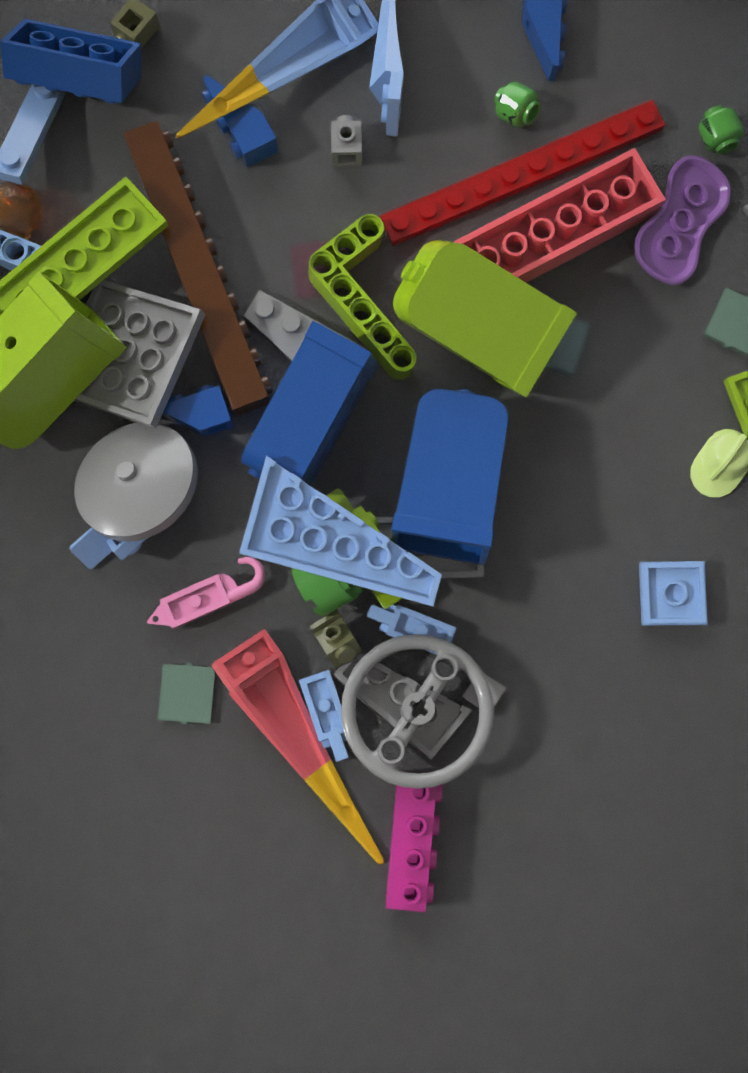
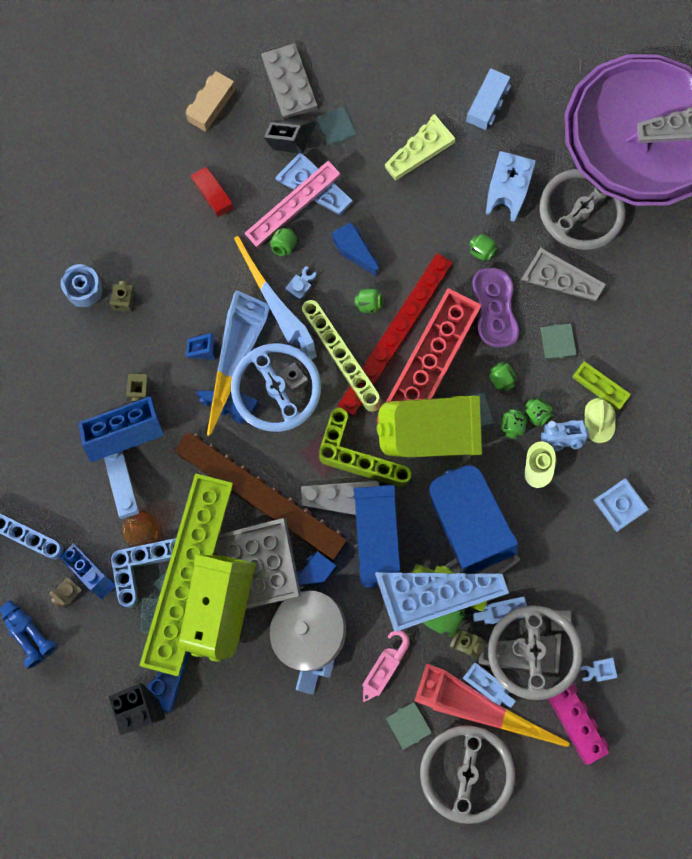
camera: 30 degrees left, 5 degrees down
(168, 853) = (465, 816): none -> light grey piece
(255, 27) = (202, 347): none -> blue slope
(312, 77) = (262, 353): none -> light blue piece
(428, 136) = (338, 347): none -> yellowish green beam
(438, 30) = (299, 285): none -> light blue plate
(494, 795) = (601, 670): none -> light blue plate
(599, 466) = (540, 464): none -> yellowish green piece
(600, 390) = (513, 424): none -> bright green head
(629, 318) = (503, 376): none -> bright green head
(646, 396) = (538, 411): none -> bright green head
(660, 449) = (565, 434): none -> light blue brick

